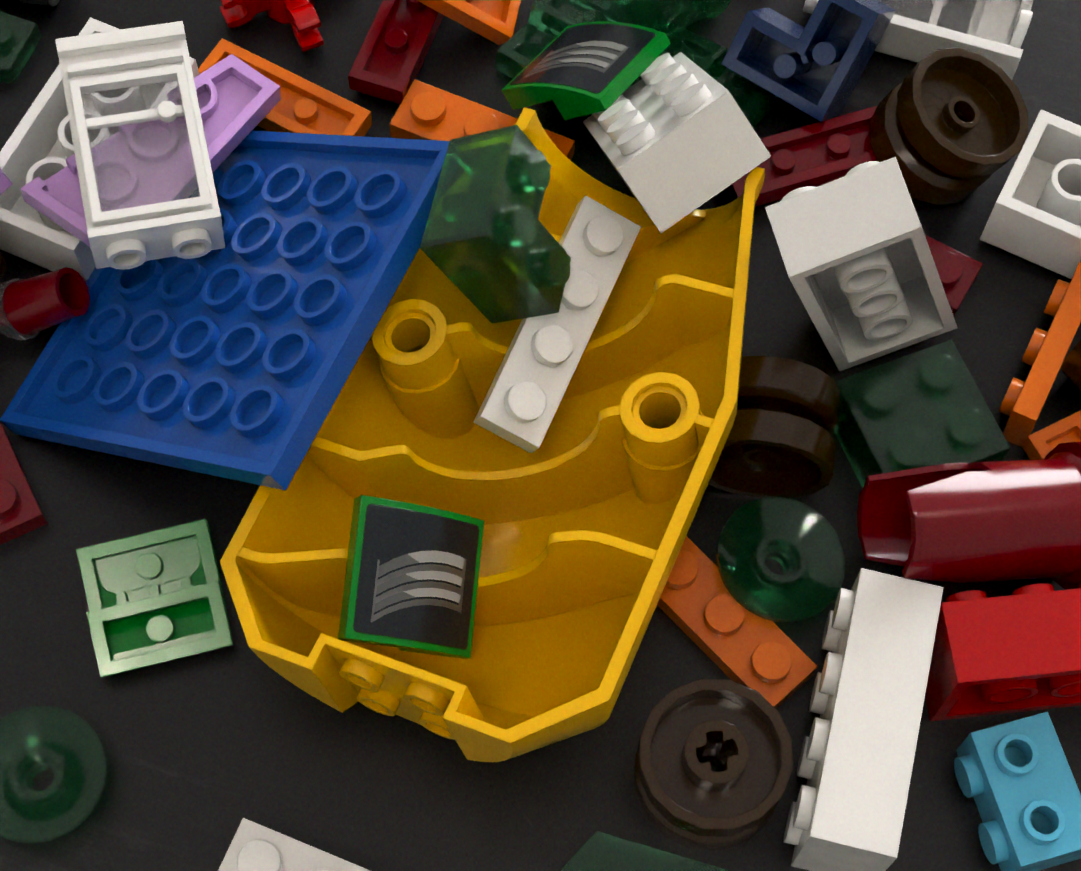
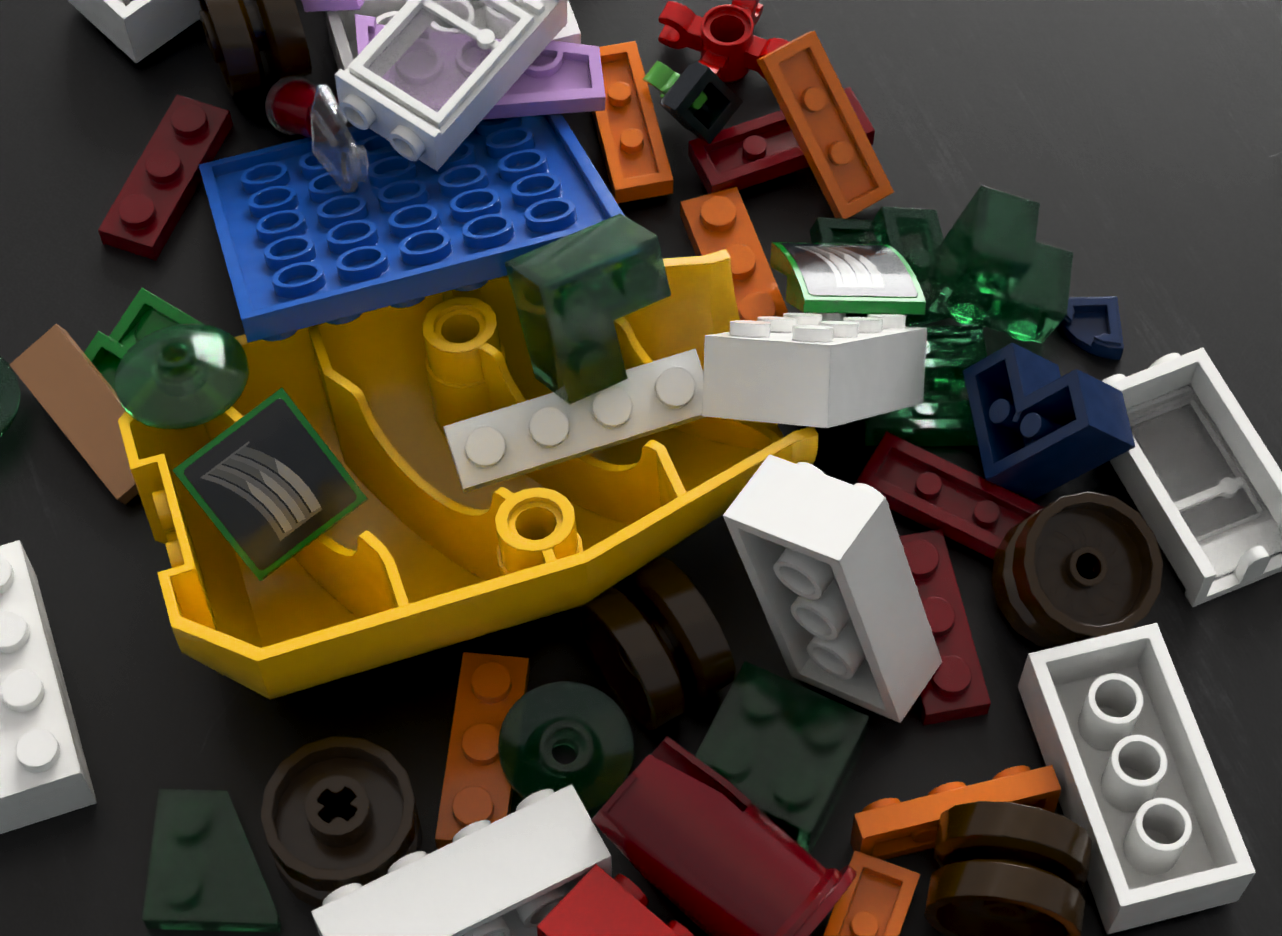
camera: 50 degrees right, 5 degrees down
(120, 298) = (334, 144): none -> clear piece
(154, 678) = (80, 405): none -> medium nougat tile
(270, 585) = (181, 376): none -> clear green dish
(329, 38) = (694, 98): none -> black piece

